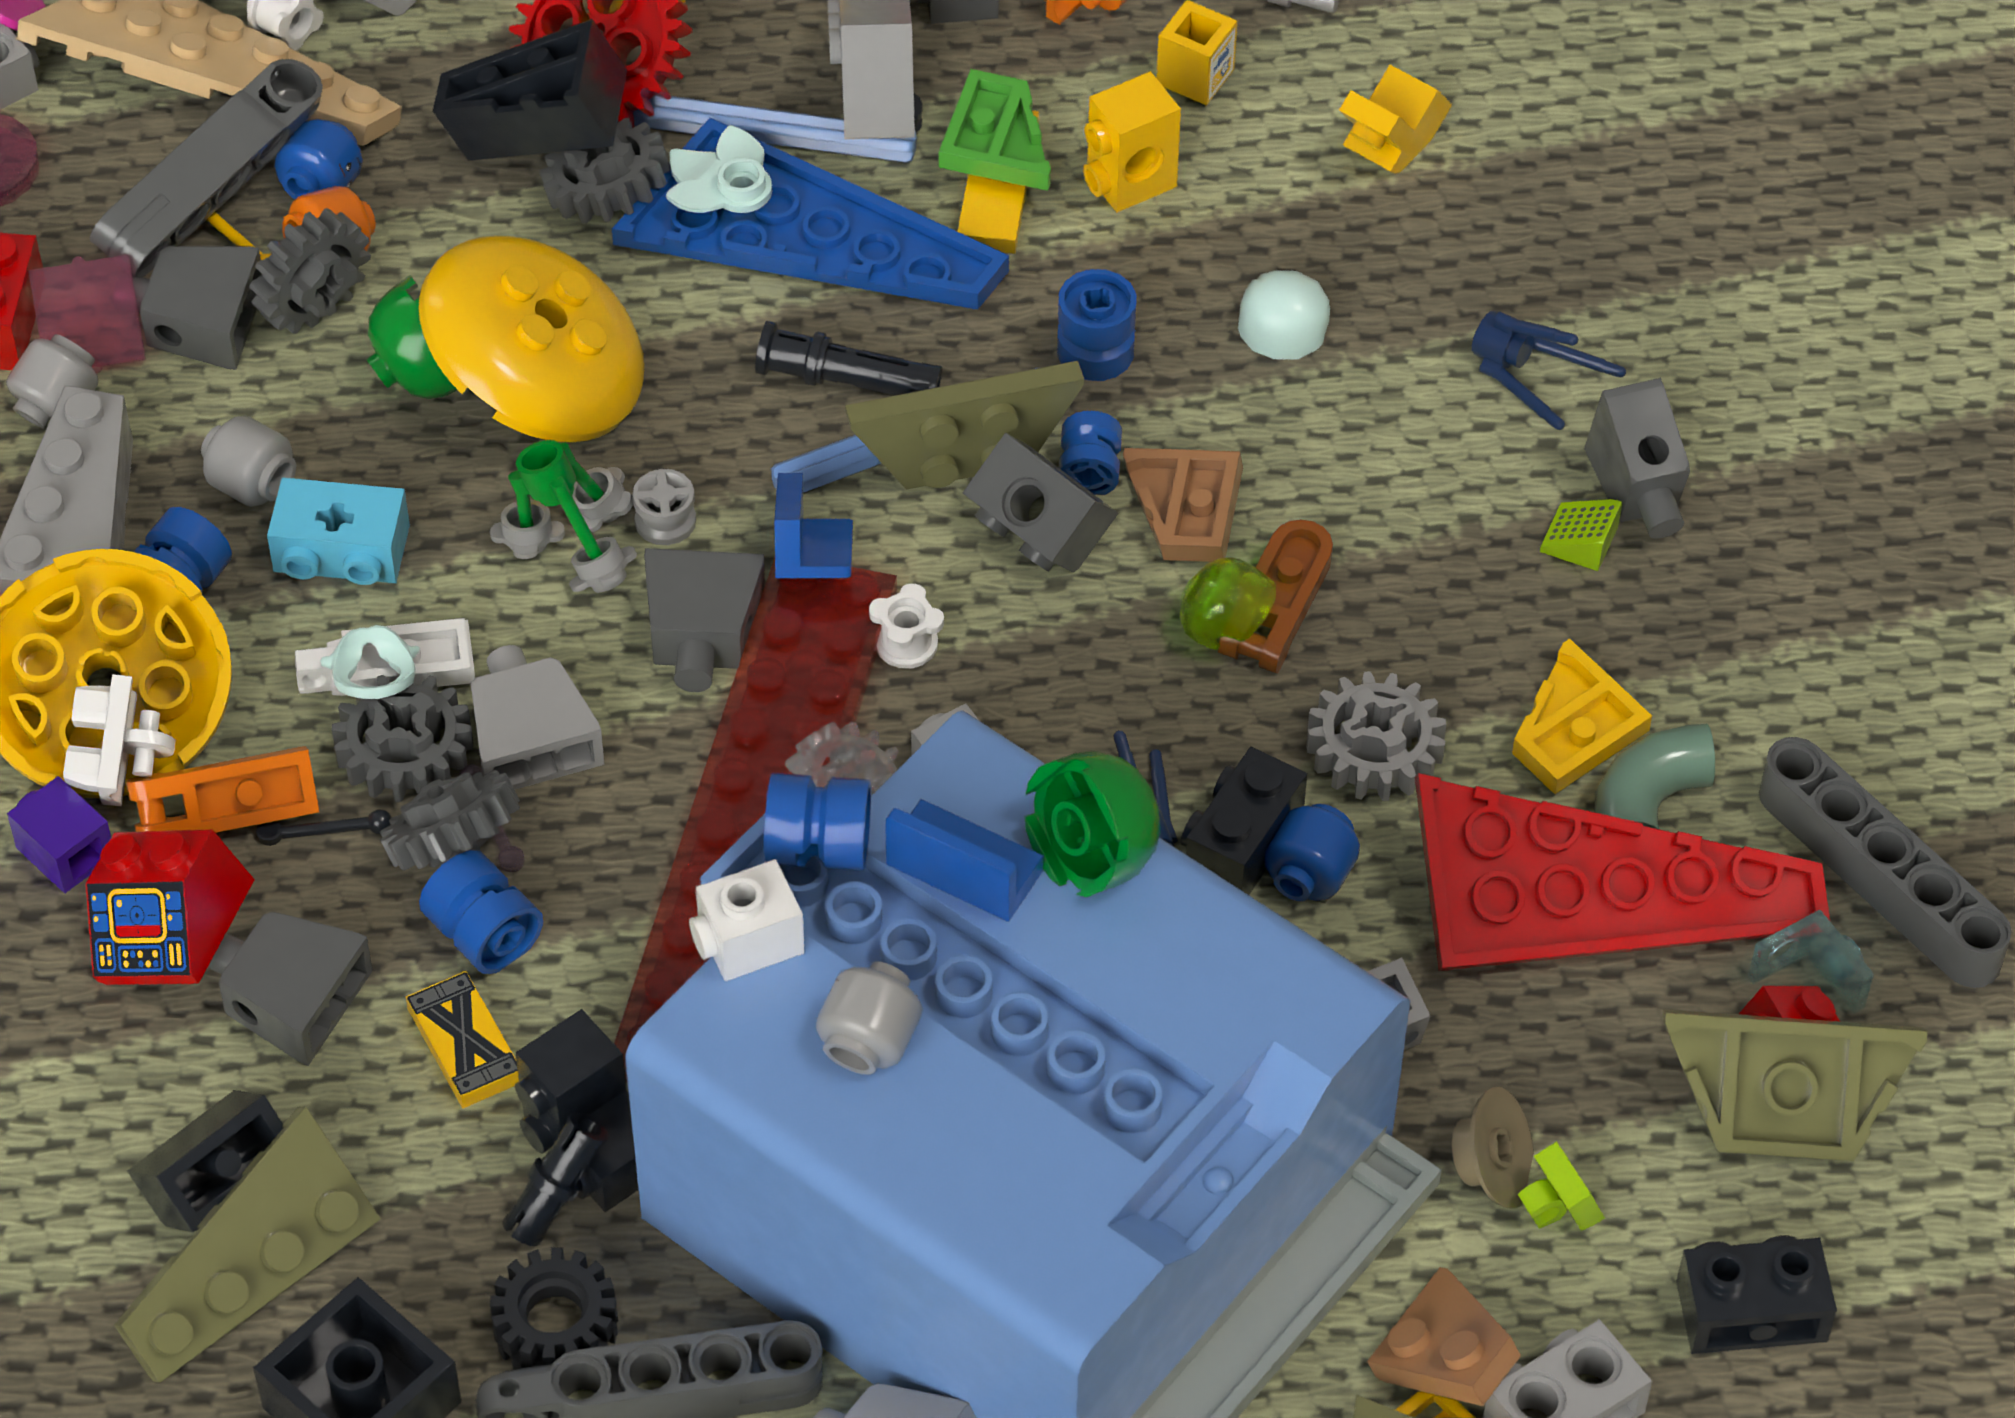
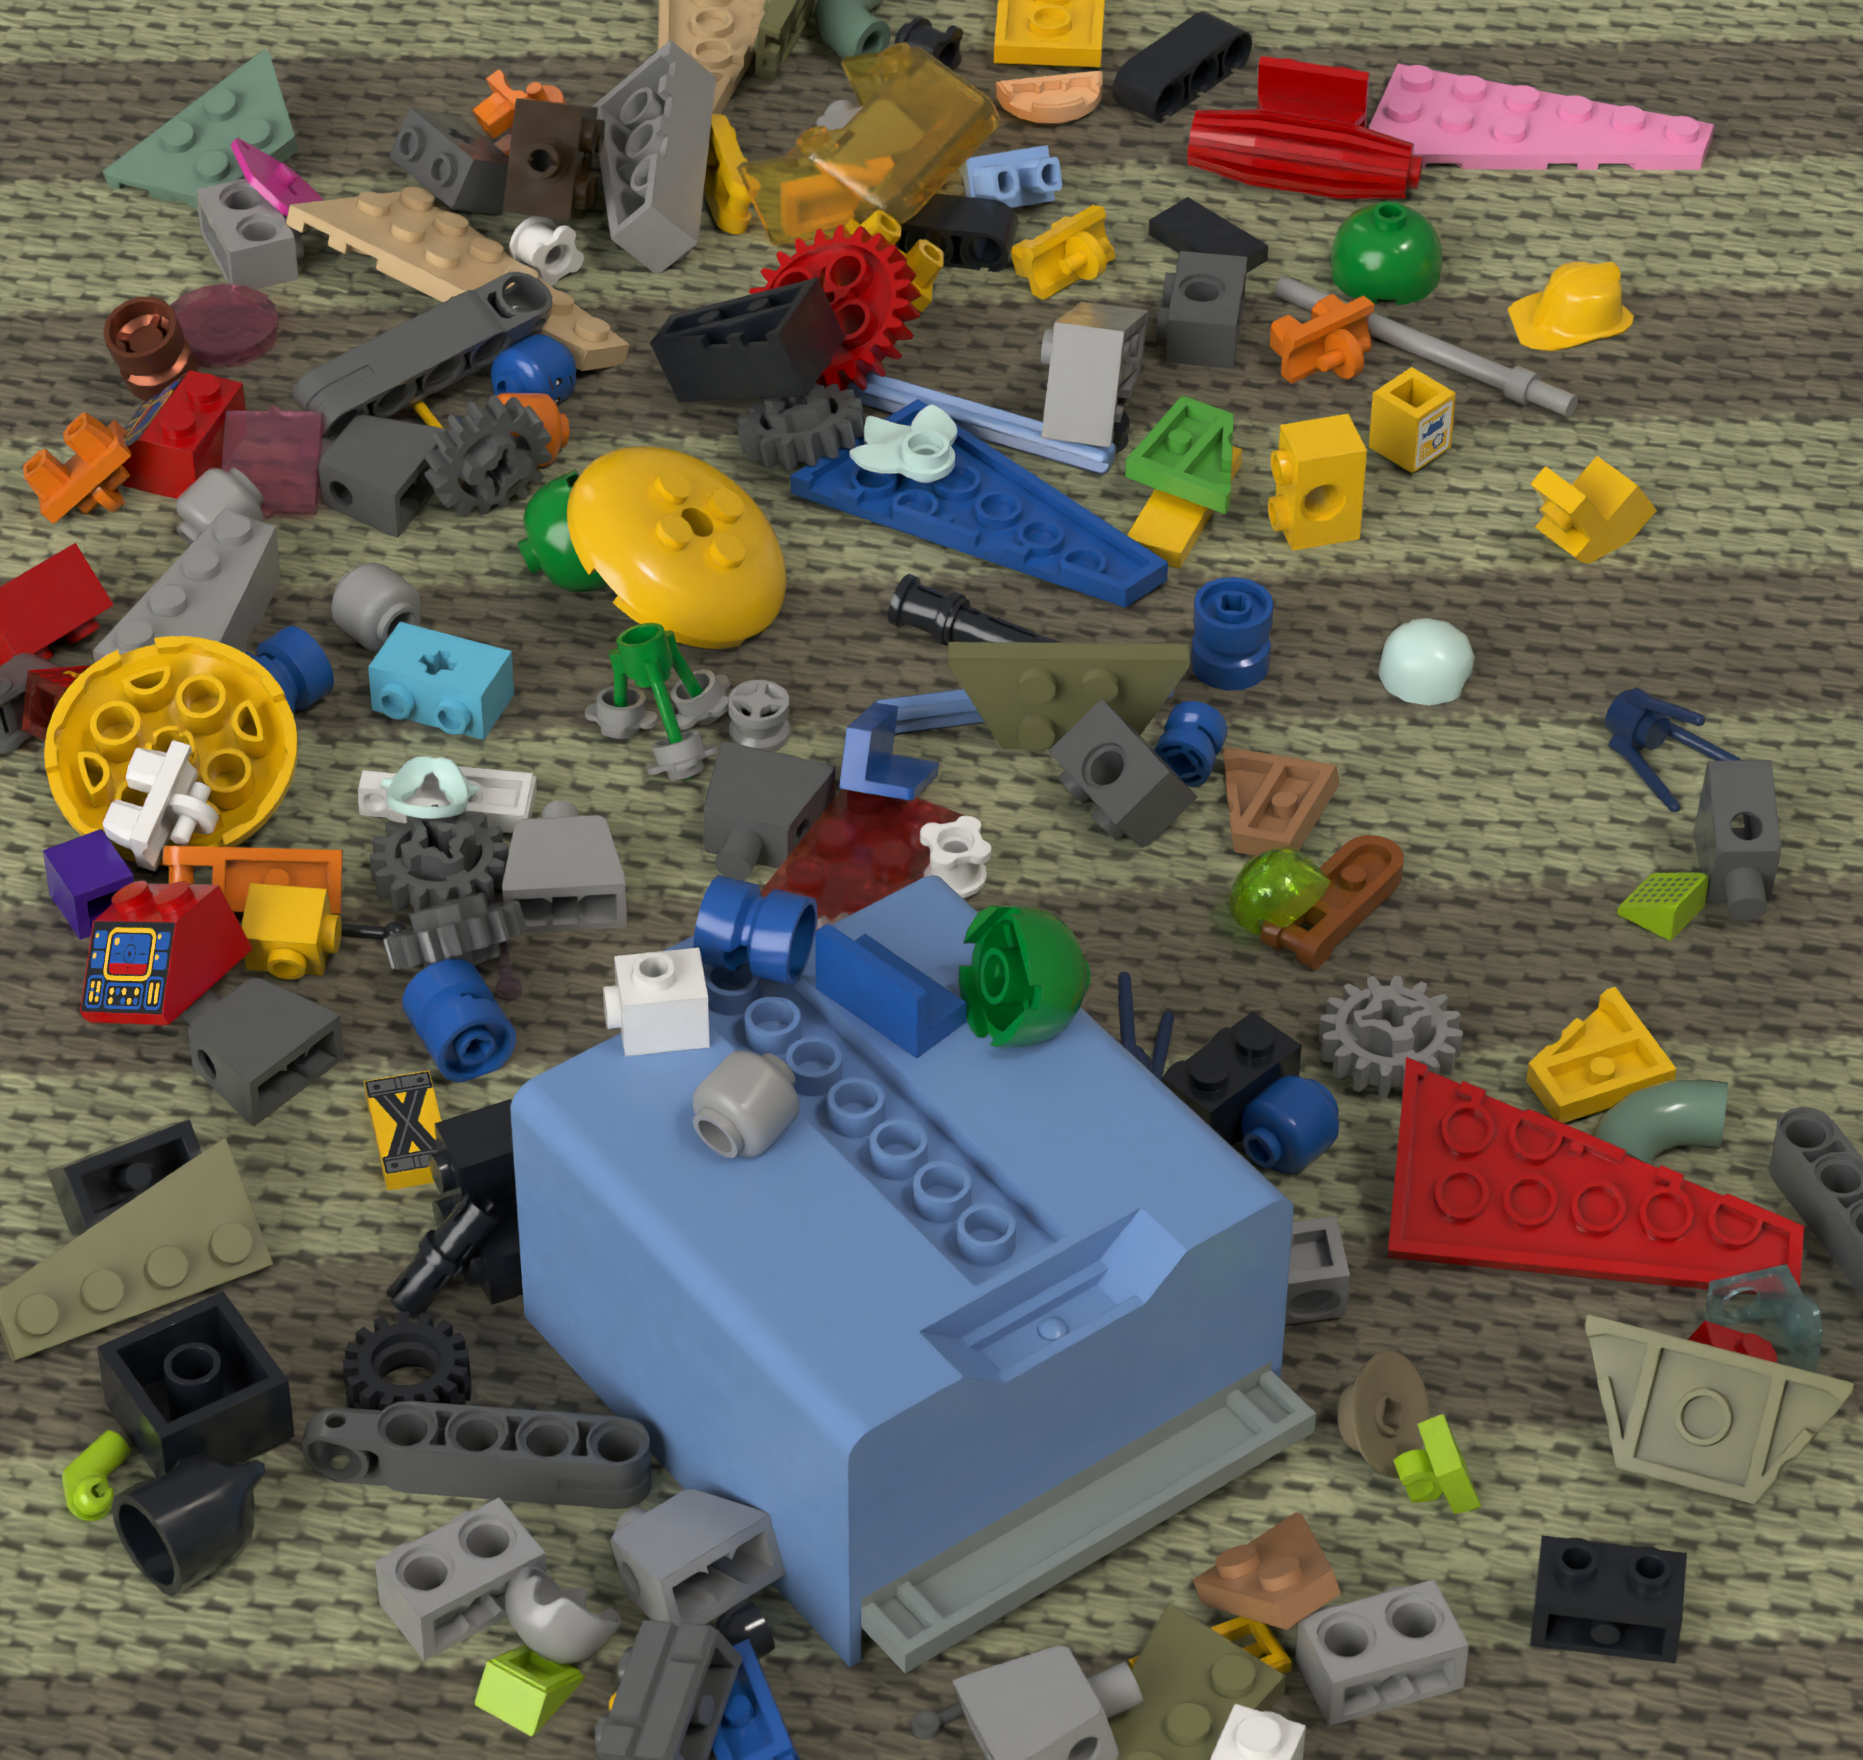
camera: 15 degrees right, 10 degrees down
(281, 846) = (289, 930): none -> yellow brick

